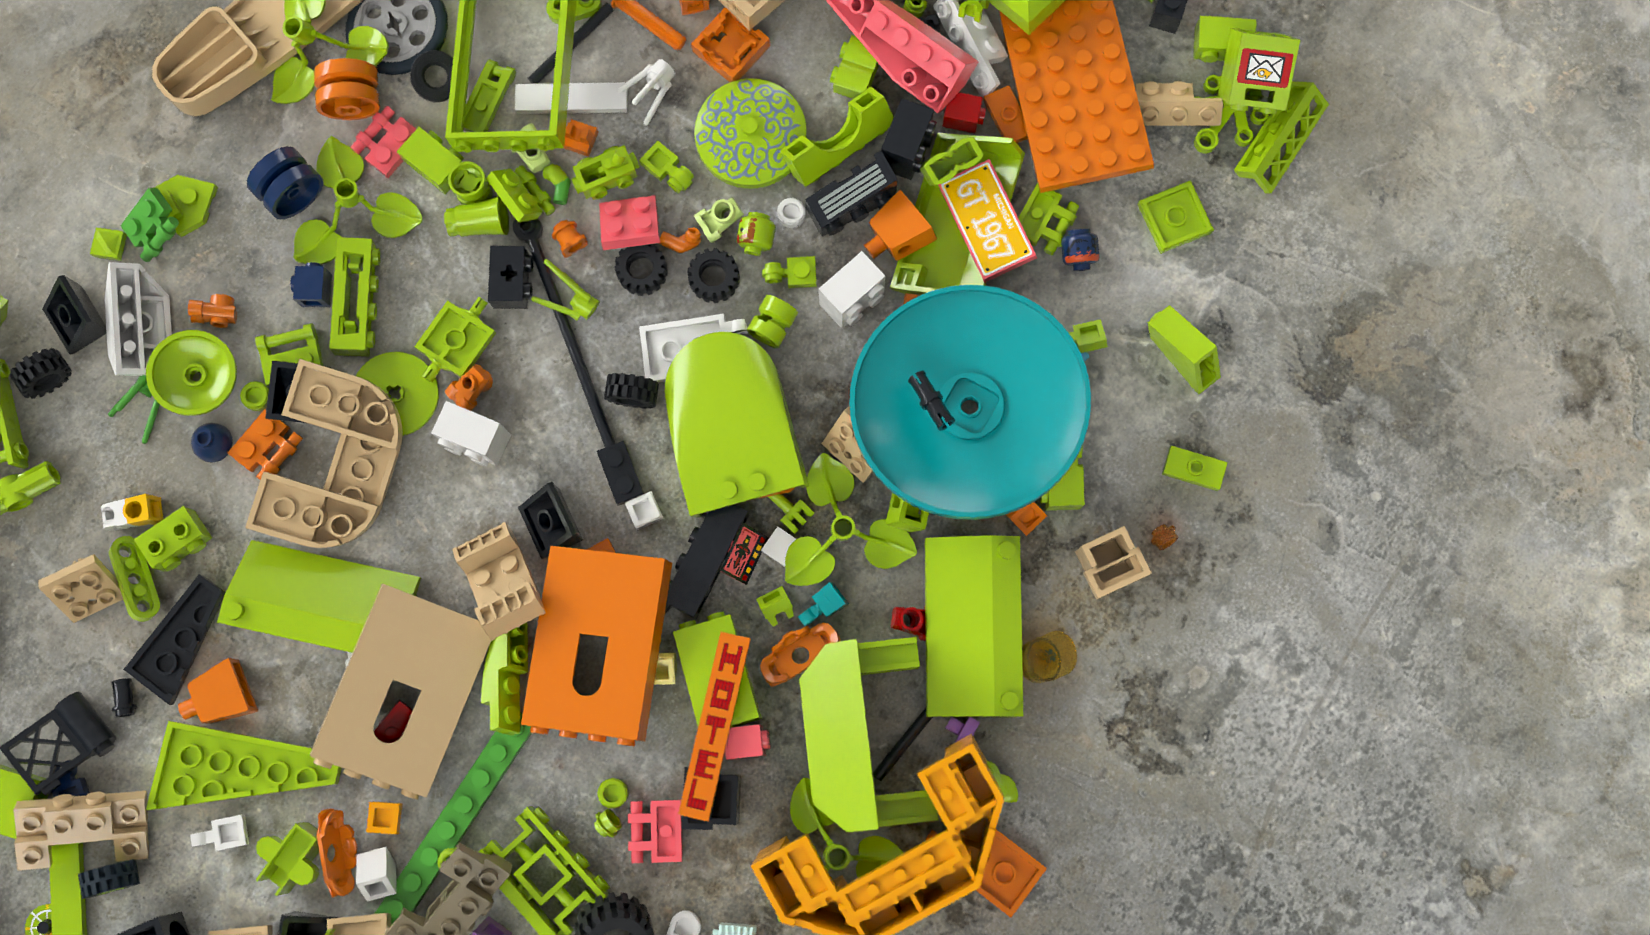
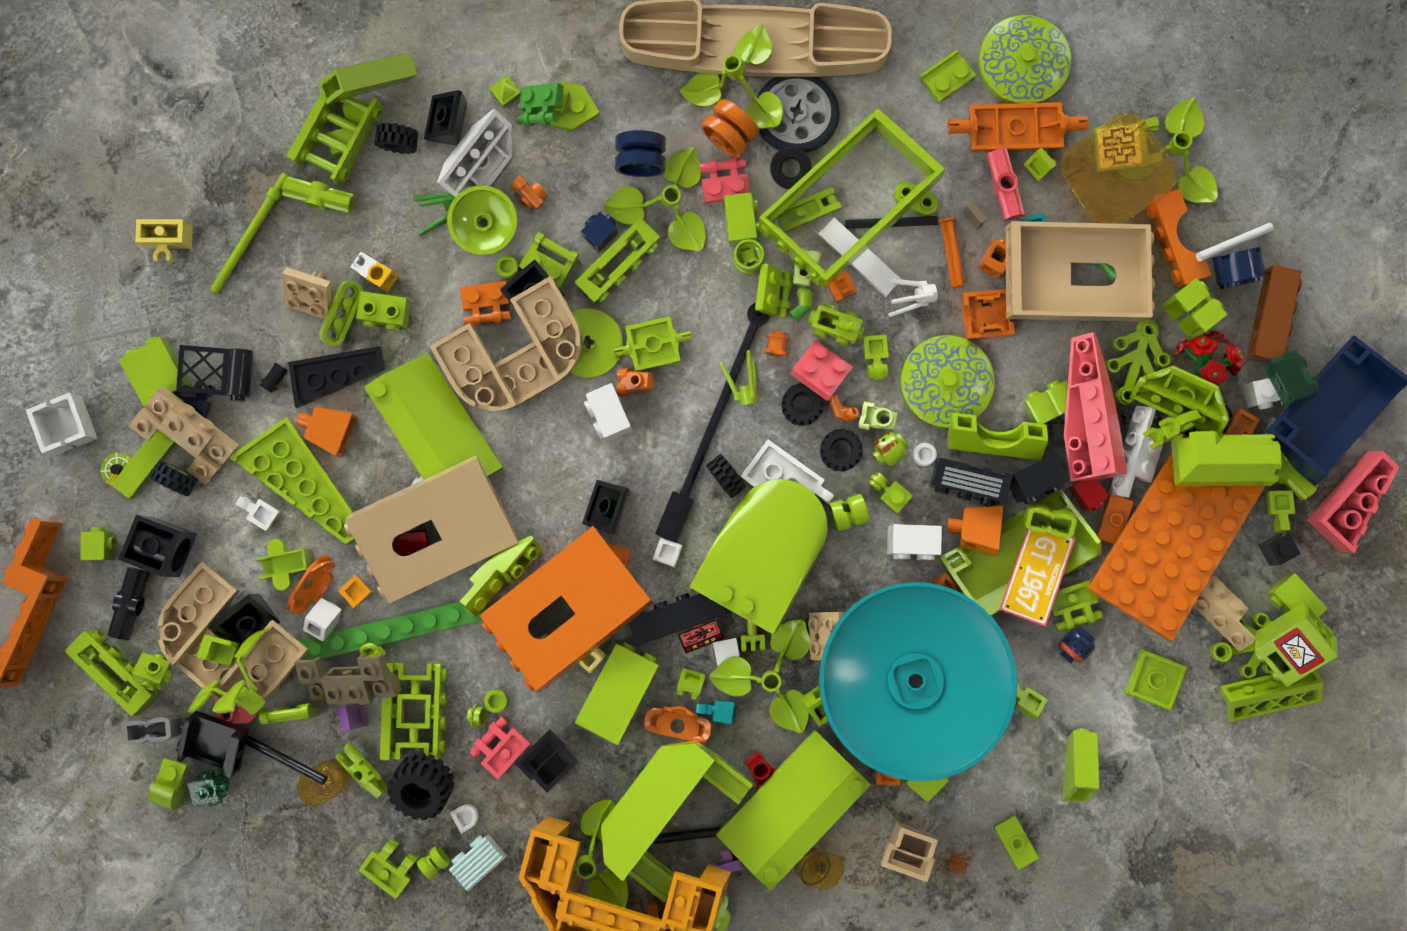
camera: 45 degrees right, 5 degrees up
(211, 442) = (457, 271): dark blue brick -> none
(478, 218) = (734, 282): lime plant -> none
(499, 581) = (544, 518): tan plate -> none
(502, 263) = (723, 323): black brick -> none
(714, 726) = (587, 726): orange tile -> none
(747, 742) = (597, 750): coral brick -> none
(931, 400) = (894, 660): black pin -> none

